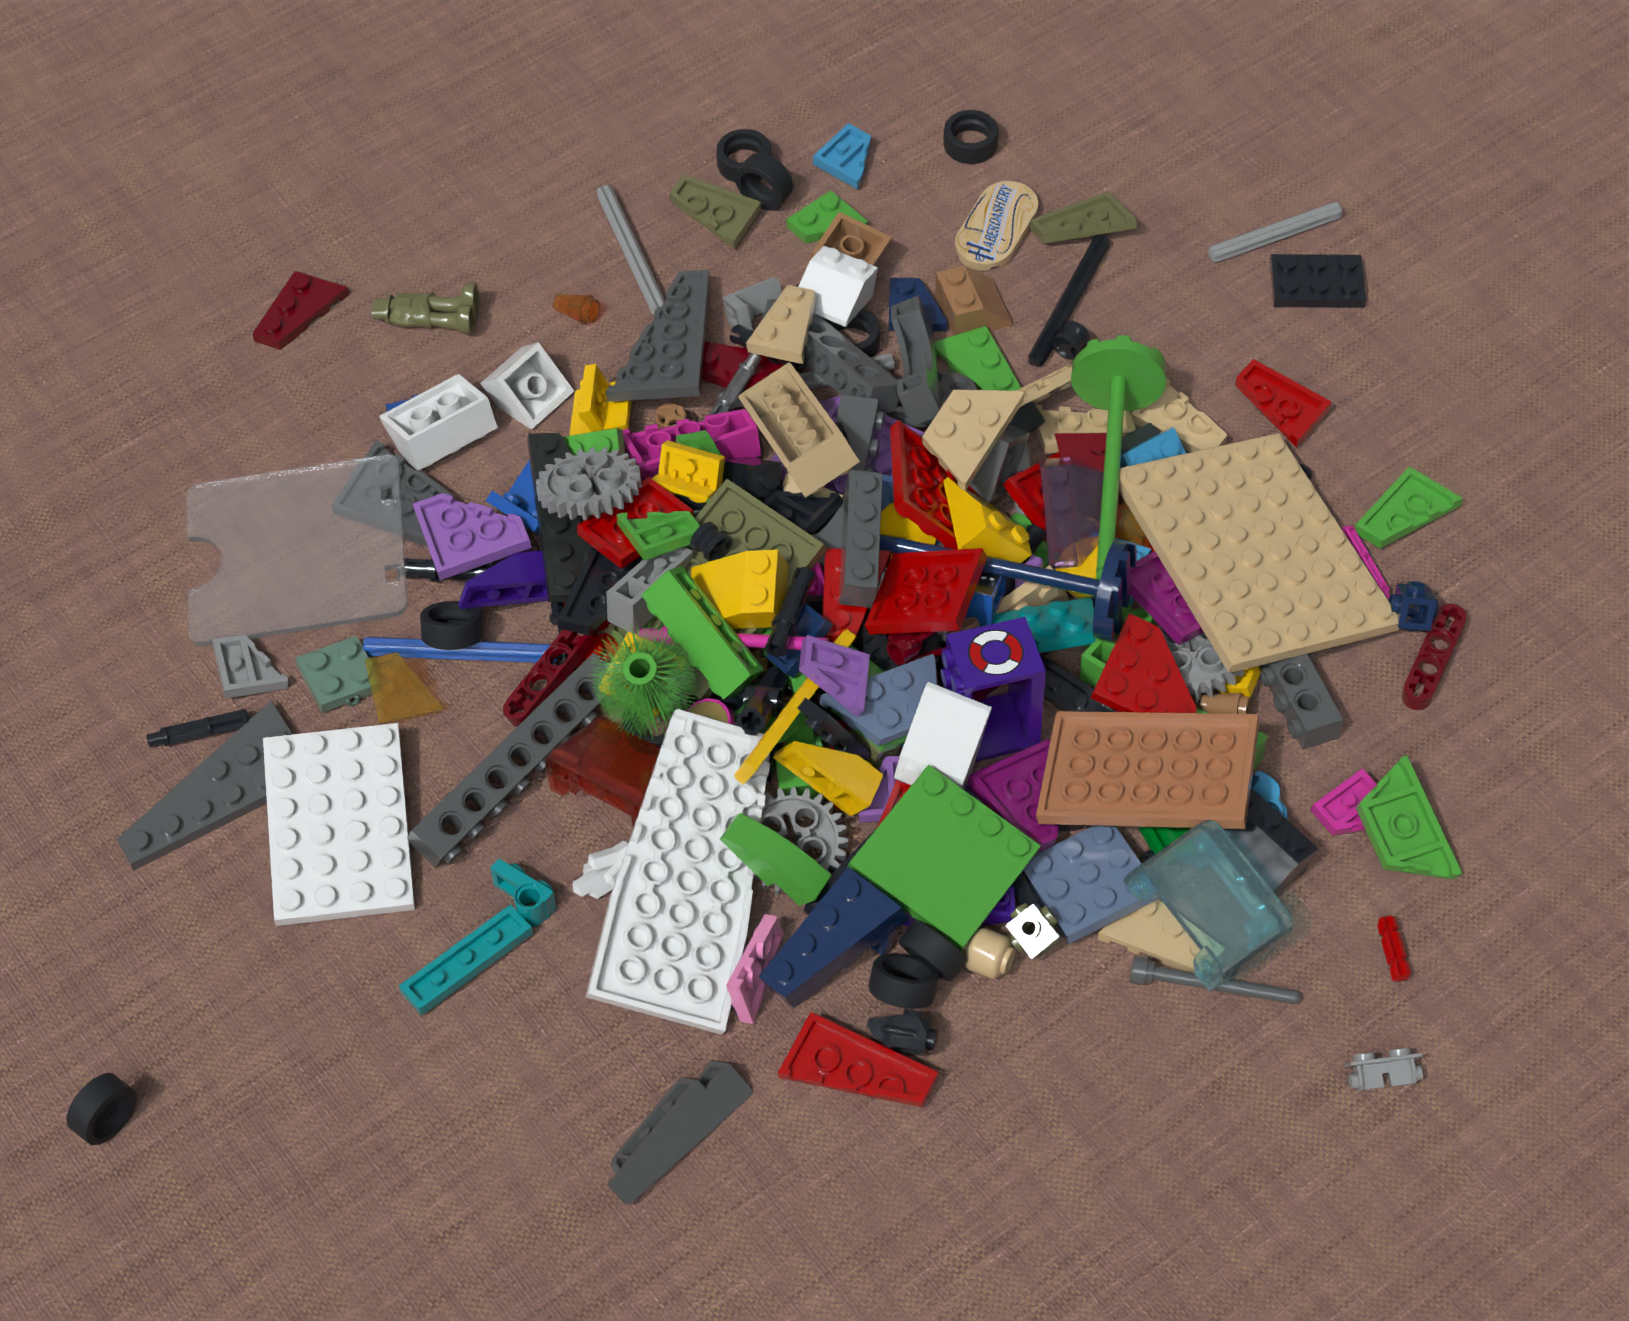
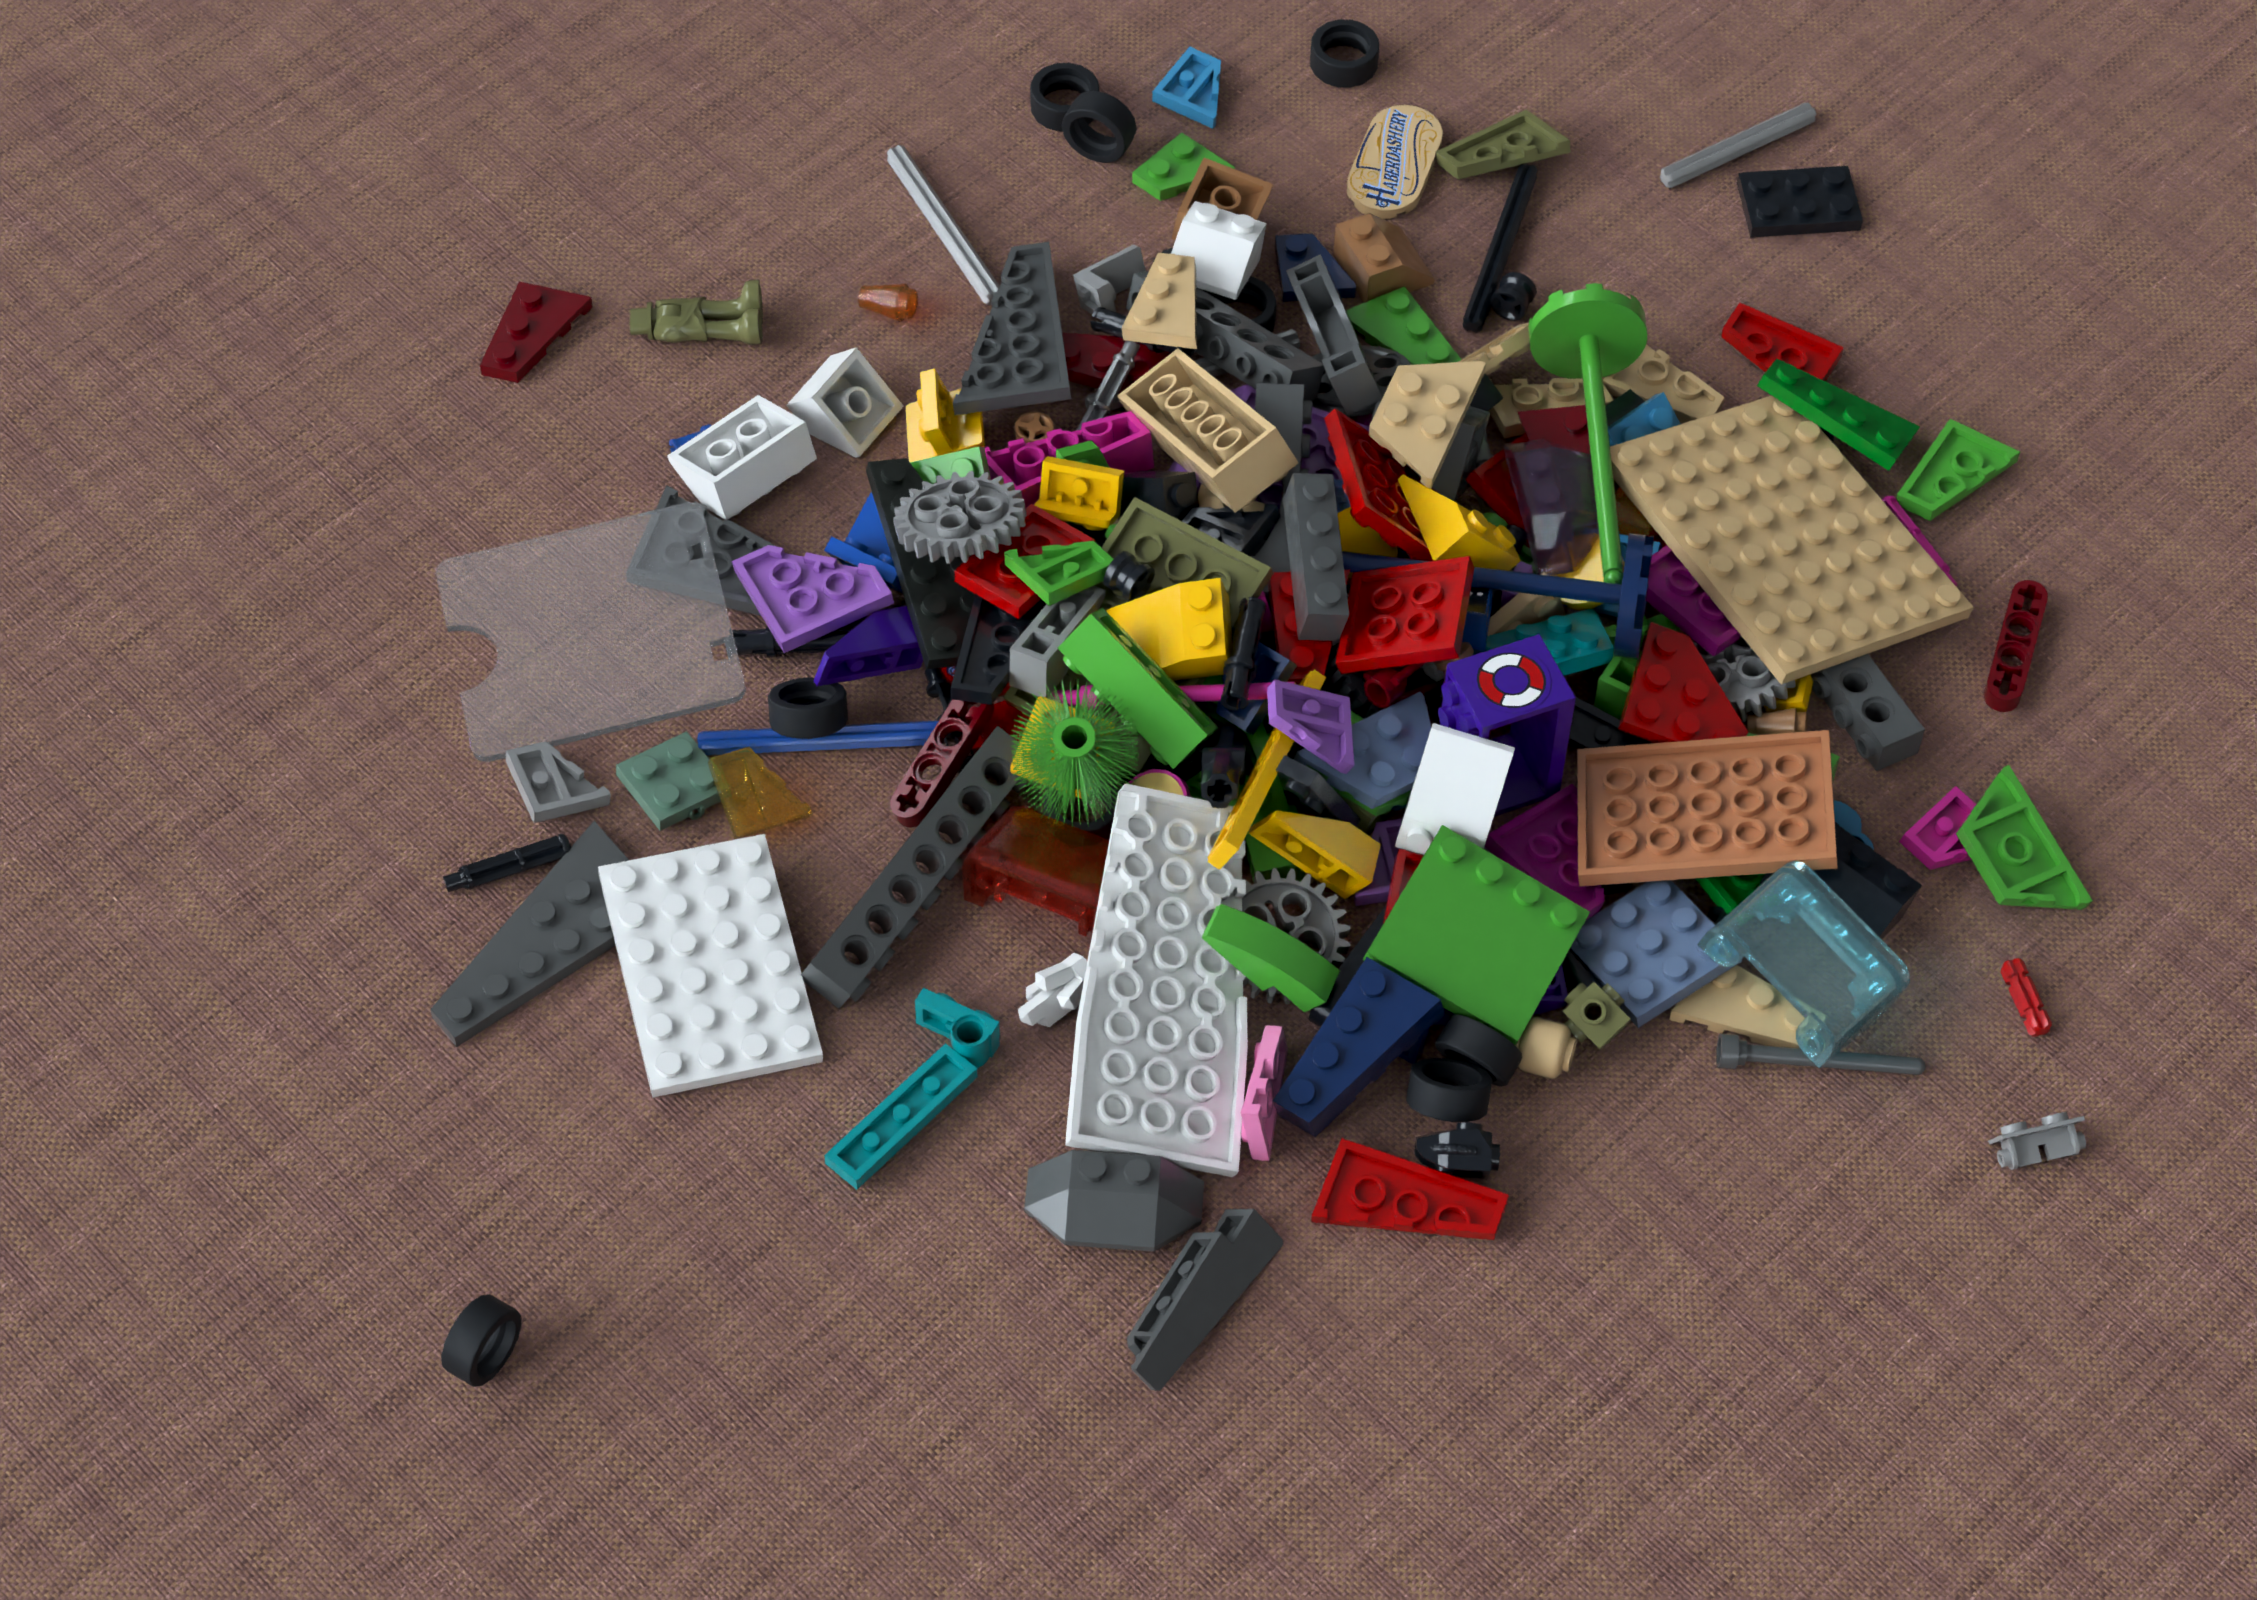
camera: 10 degrees left, 0 degrees up
(622, 1045) = (1113, 1200): none -> dark grey wedge
(715, 208) = (1042, 165): olive wing -> none
(1324, 459) = (1849, 418): none -> green wing
(1414, 606) = (1985, 585): dark blue brick -> none

